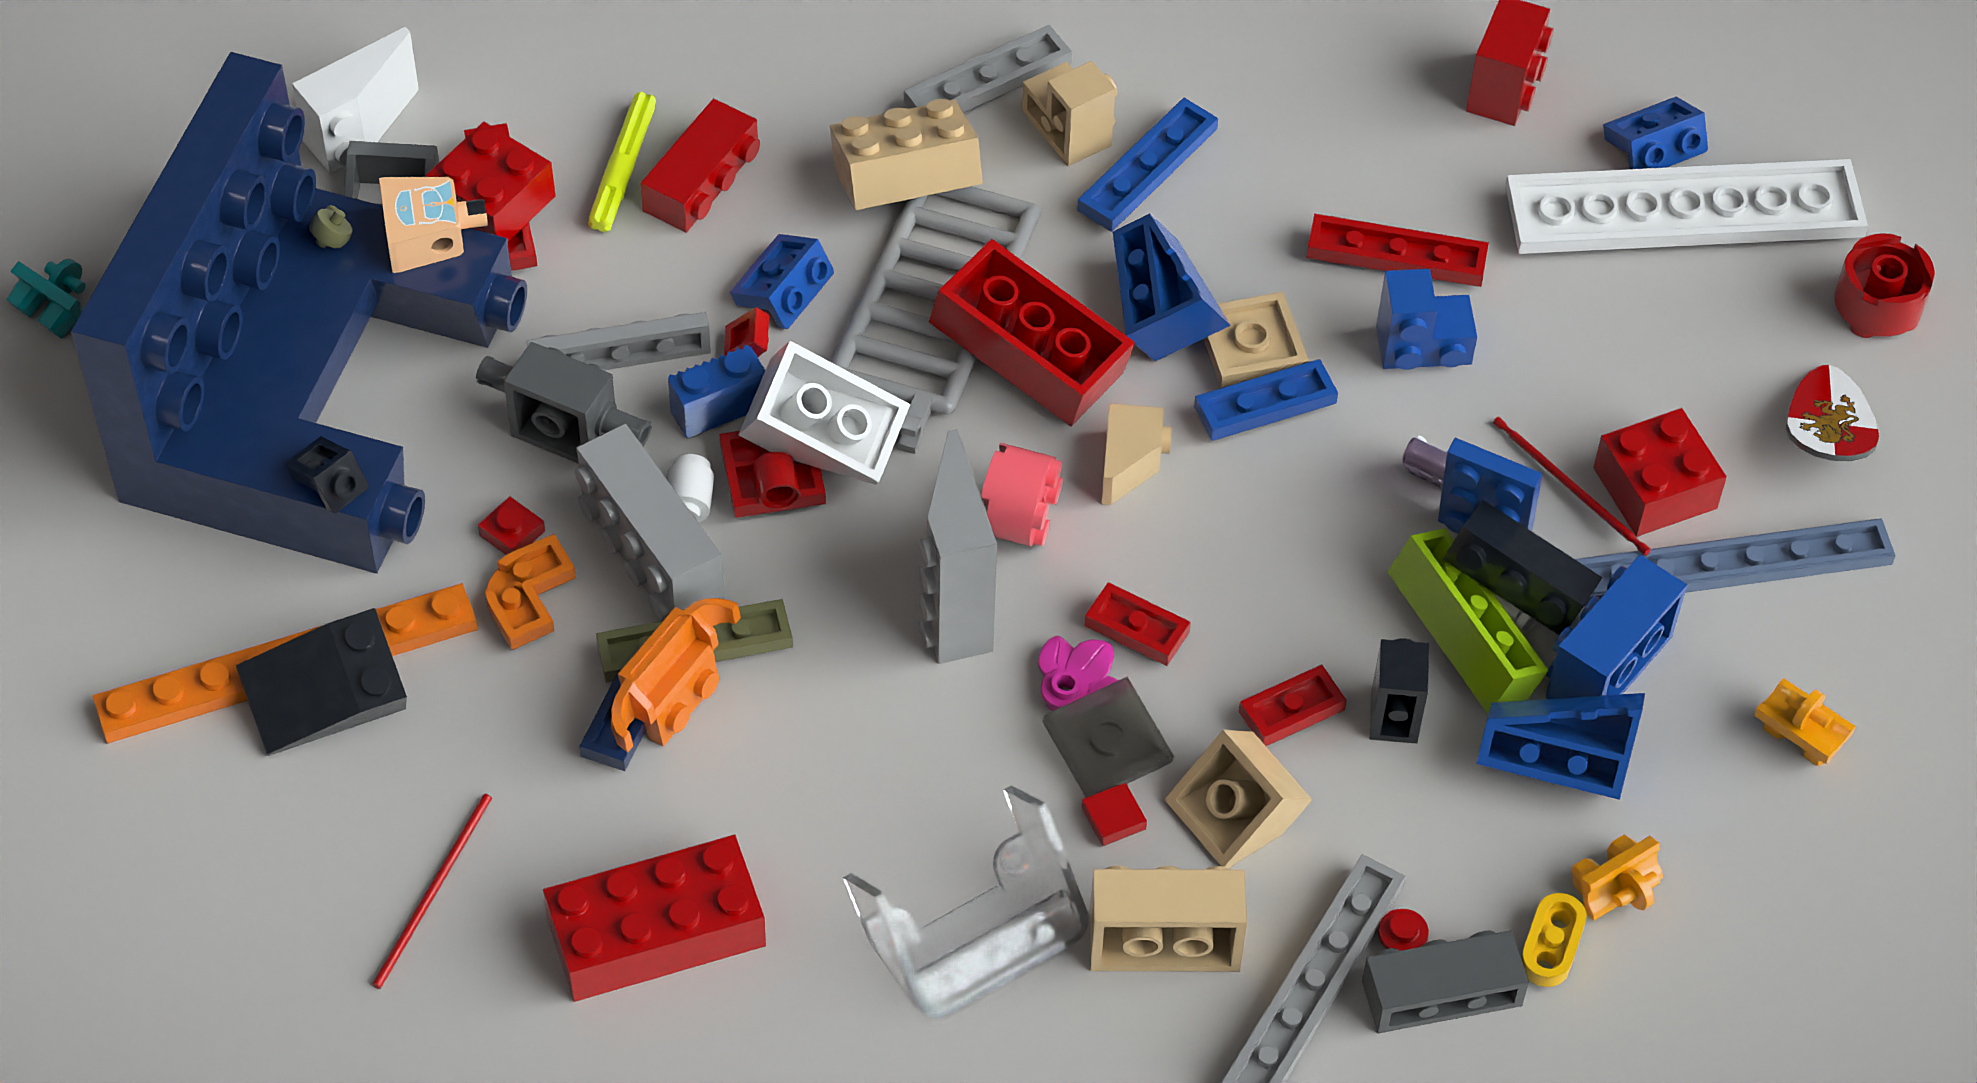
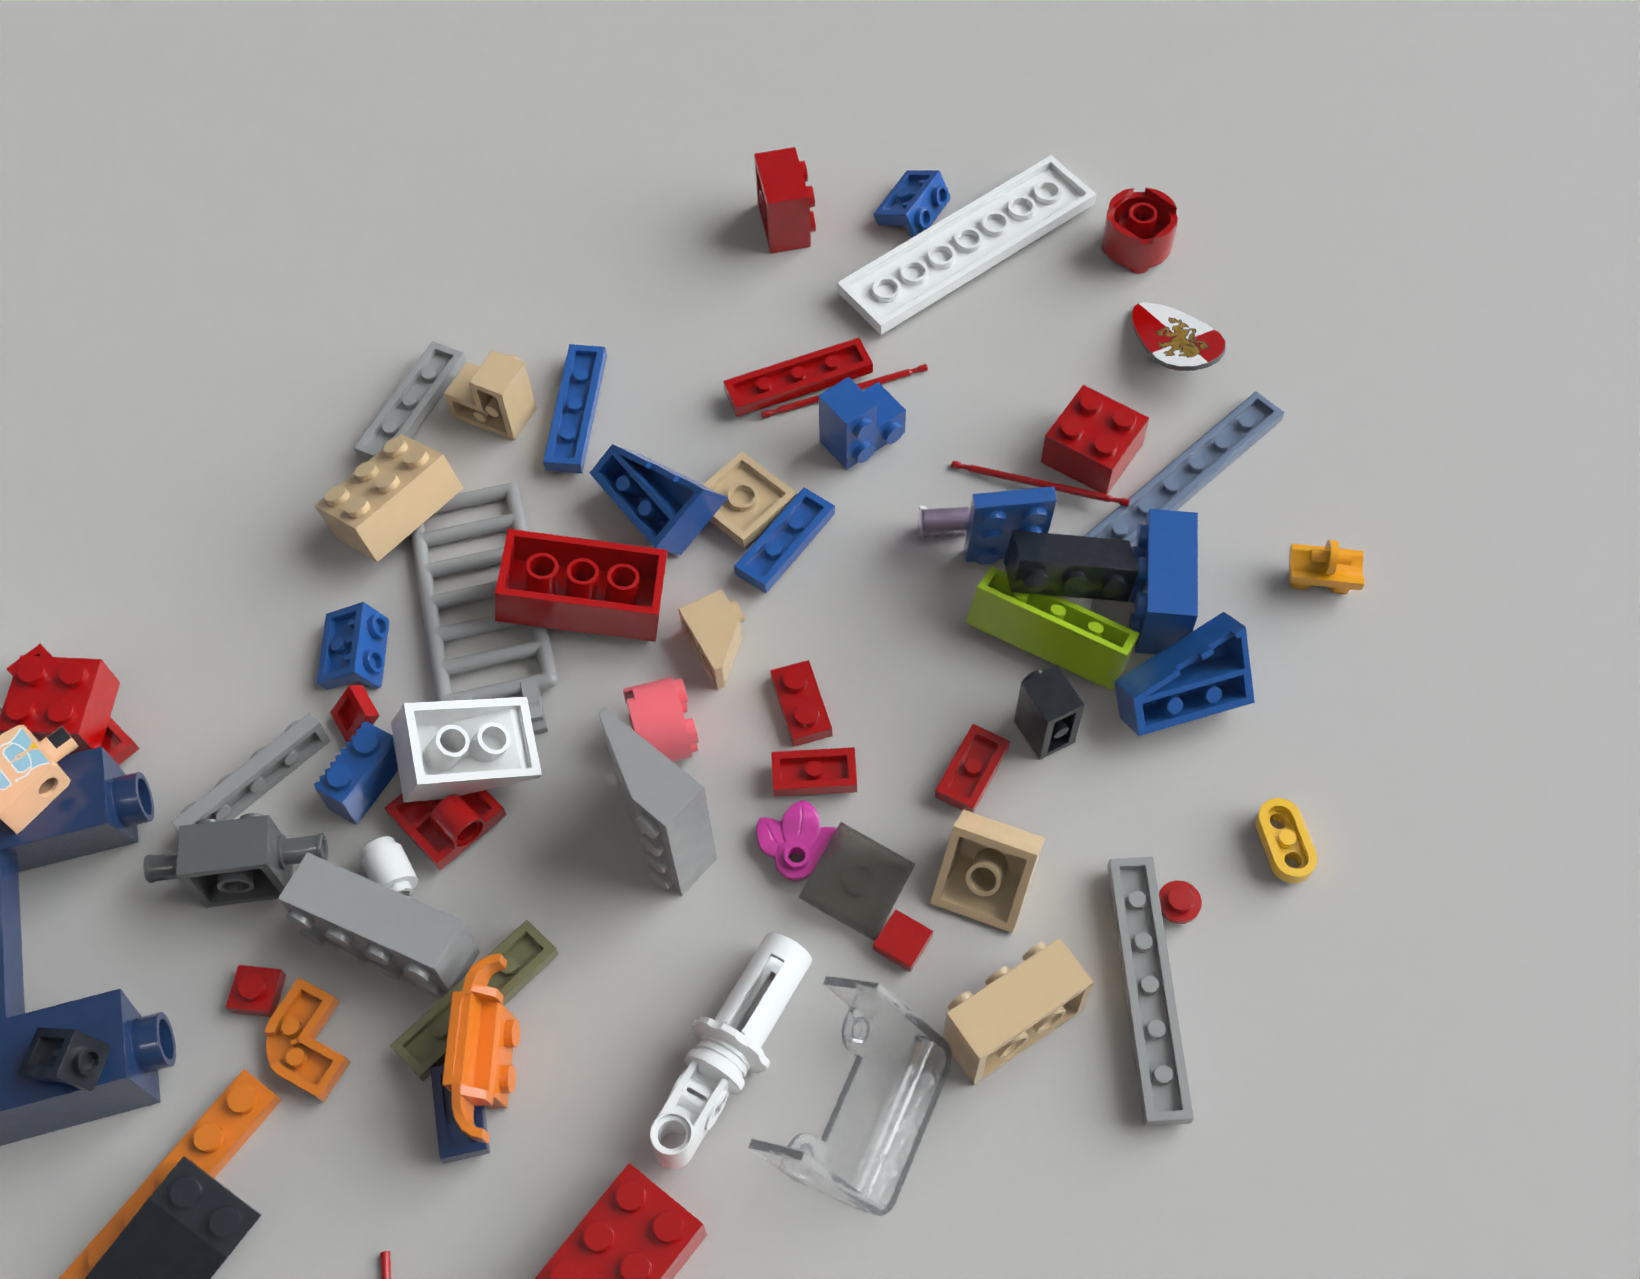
camera: 30 degrees left, 5 degrees up
(621, 162) = (159, 624): neon yellow axle -> none
(700, 165) = (226, 593): red brick -> none
(885, 802) = (724, 1053): none -> white piece
(1172, 558) = (801, 703): none -> red plate
(1444, 980) = (1238, 923): dark grey brick -> none
(1474, 297) = (863, 385): none -> red piece
(1621, 880) = (1299, 760): light orange hips -> none

